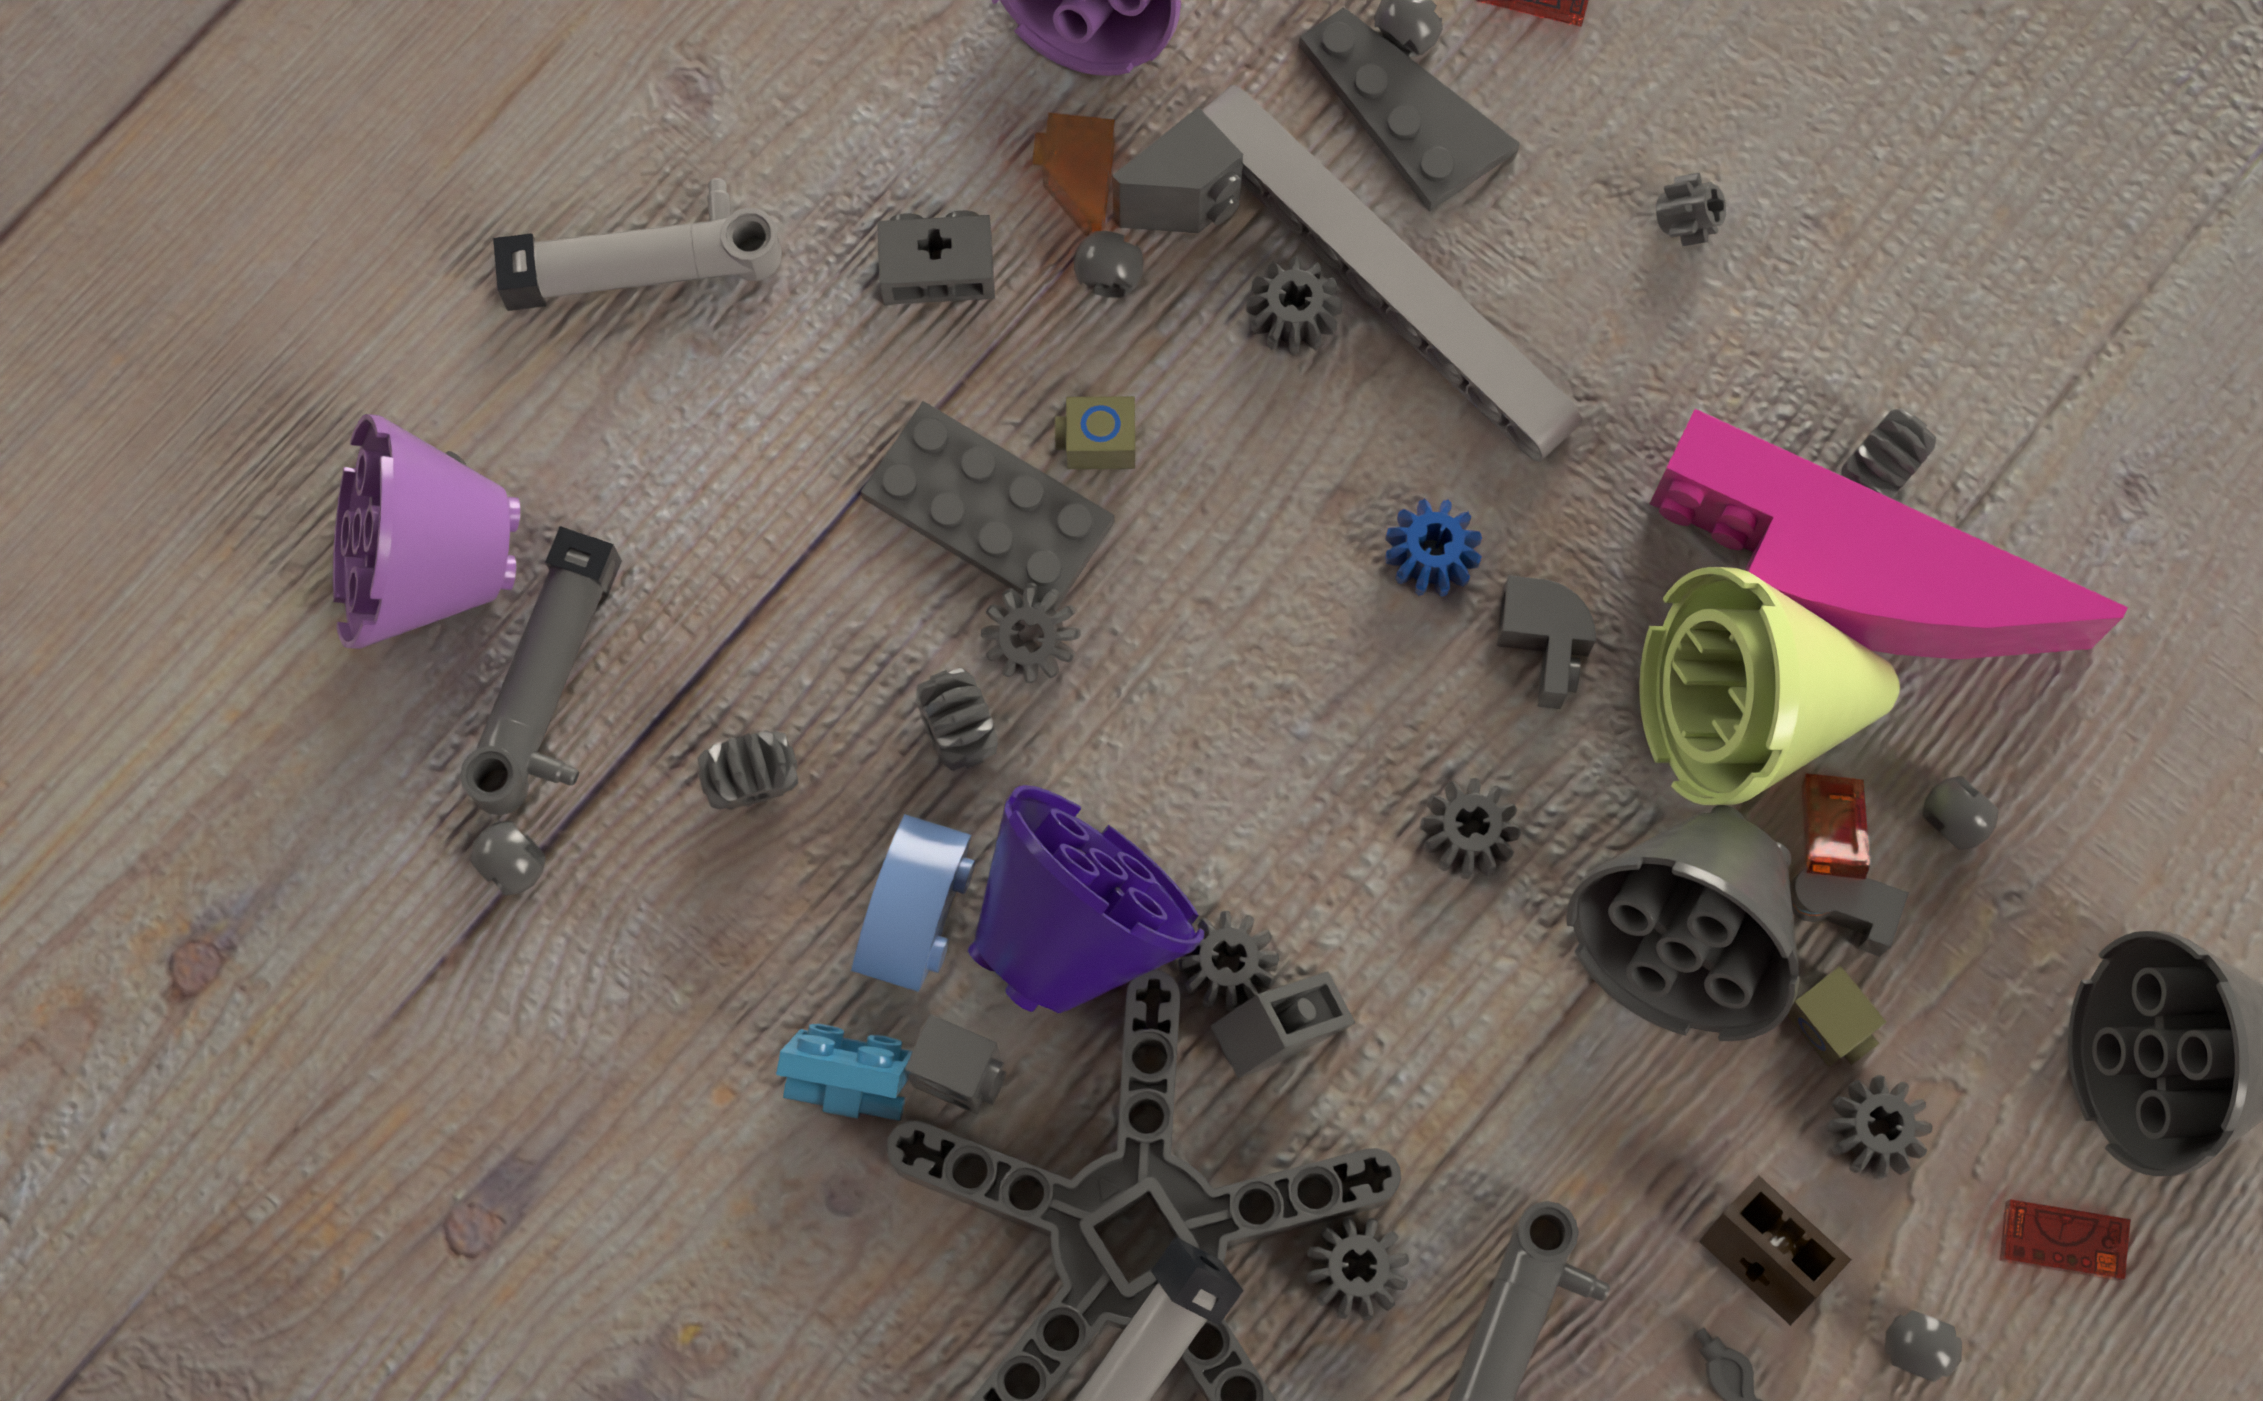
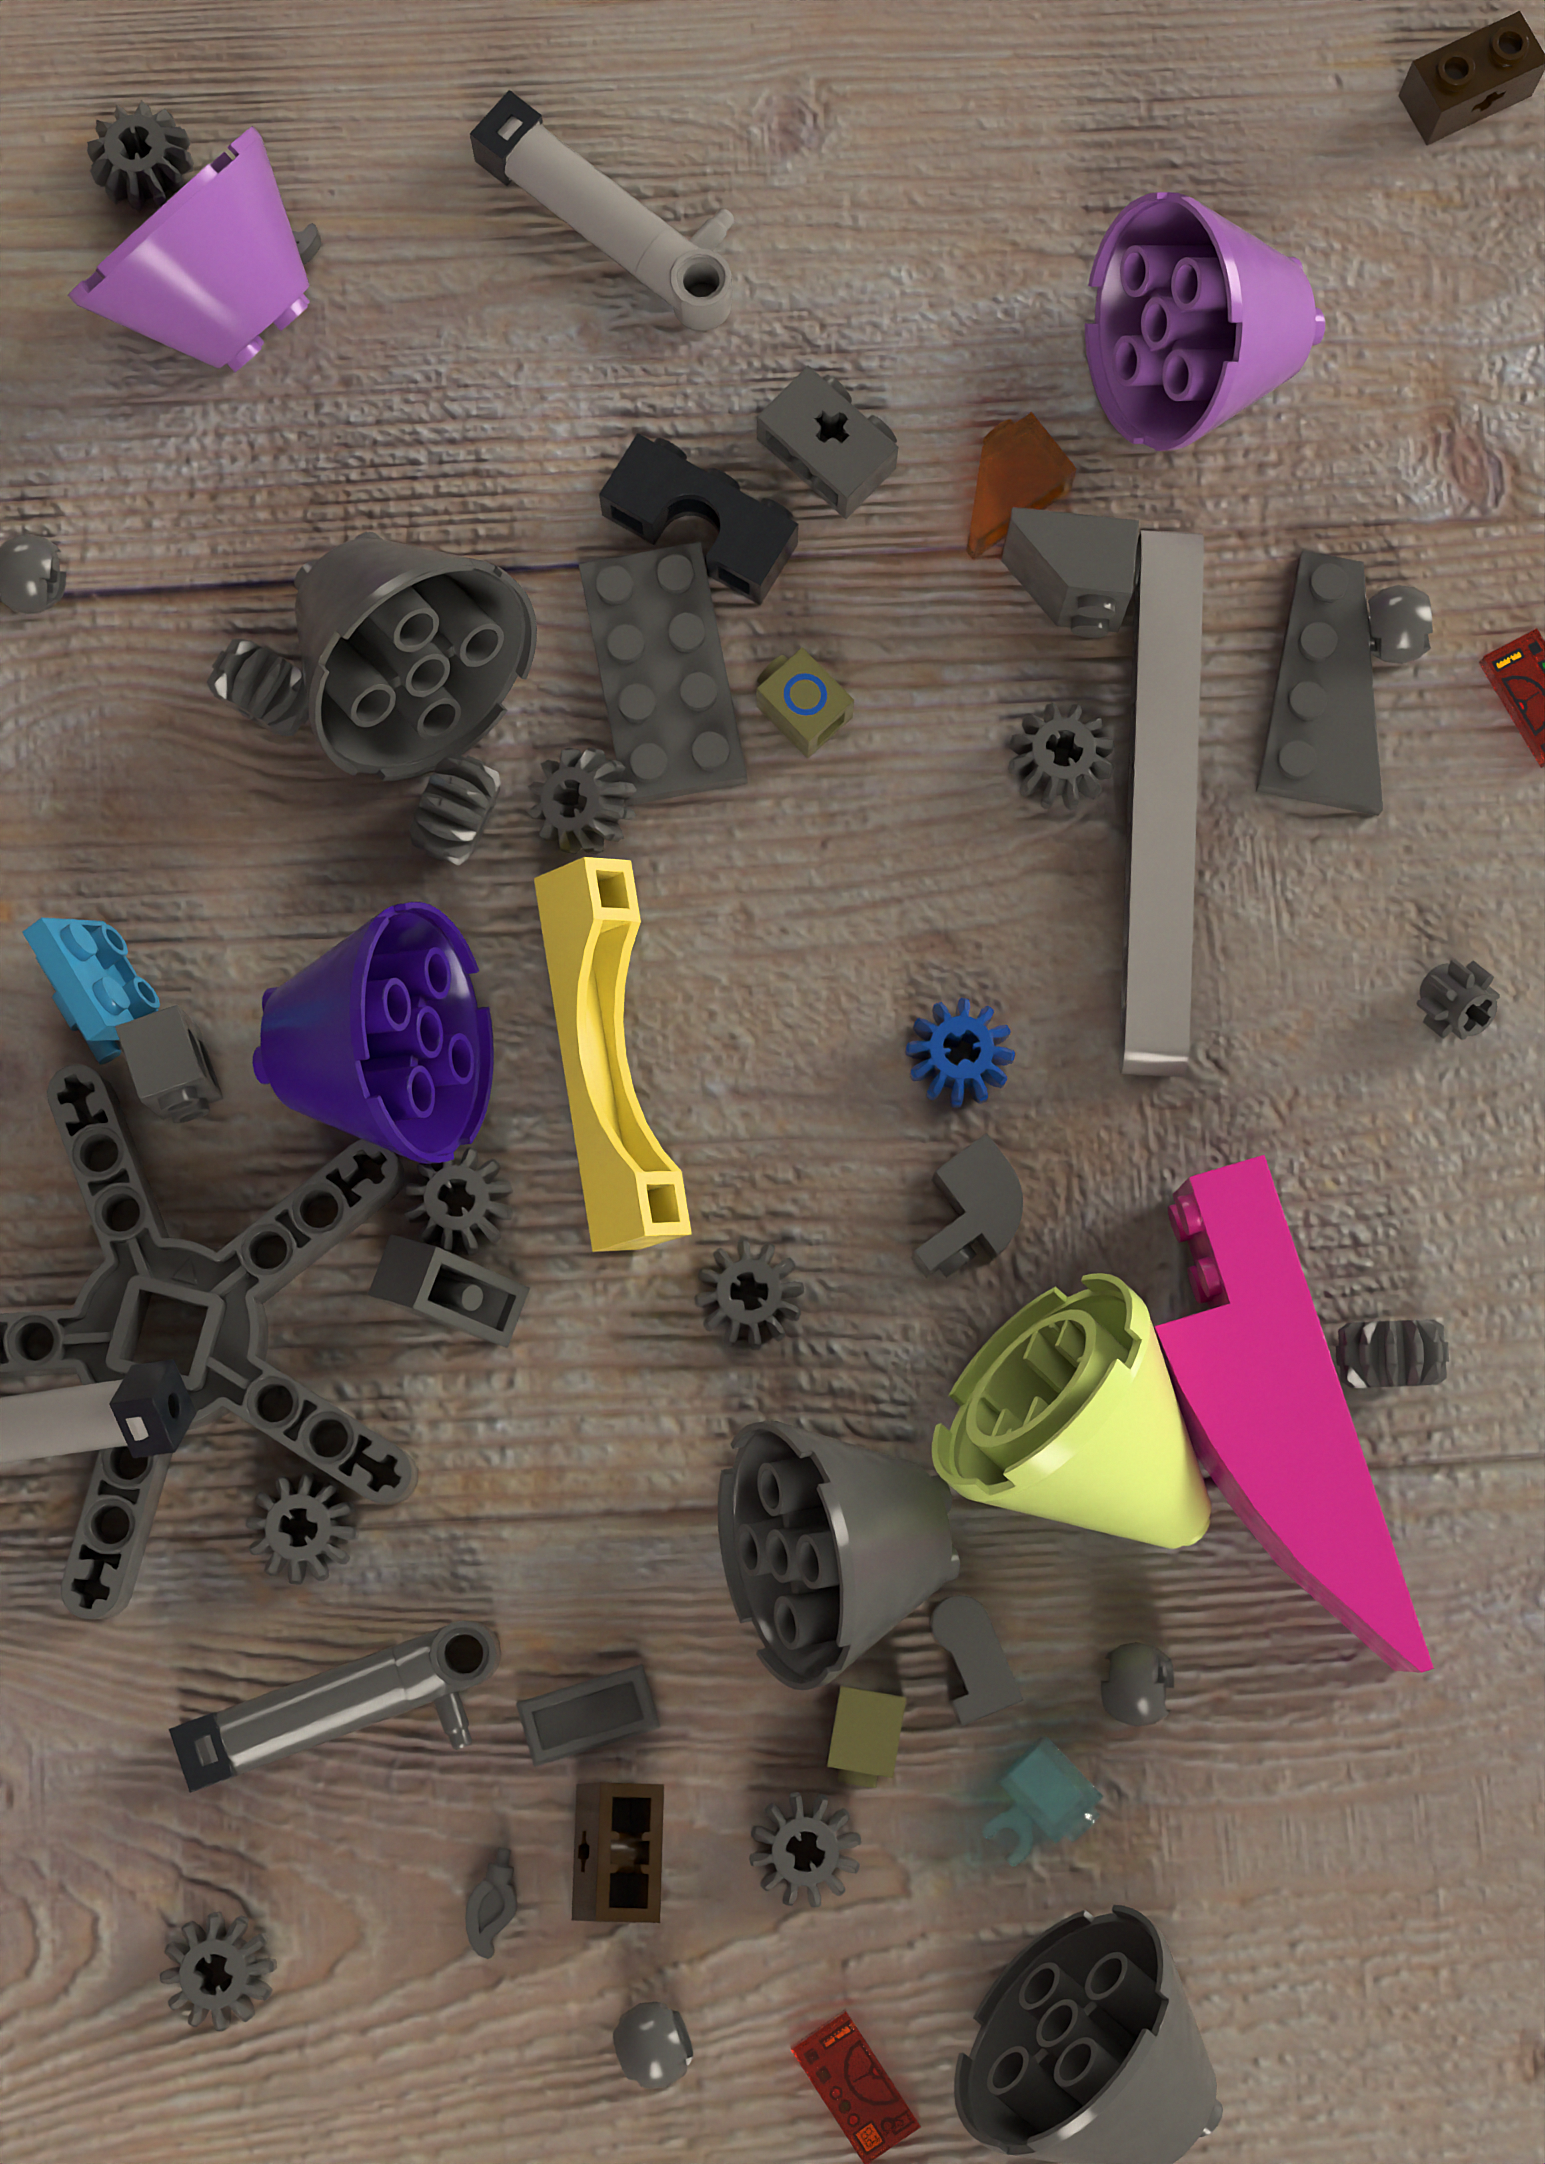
camera: 45 degrees right, 5 degrees up
(267, 510) = (138, 136): none -> dark grey gear
(577, 577) = (195, 460): dark grey piece -> none
(819, 647) = (407, 653): none -> dark grey cone
(912, 903) = (275, 912): medium blue brick -> none
(949, 364) = (659, 485): none -> black arch
(1108, 264) = (954, 578): dark grey piece -> none
(1125, 709) = (588, 935): none -> light yellow arch
(1657, 1193) = (588, 1715): none -> dark grey tile
(1835, 826) = (1027, 1590): clear red tile -> none
(1982, 938) = (1044, 1793): none -> clear light blue brick

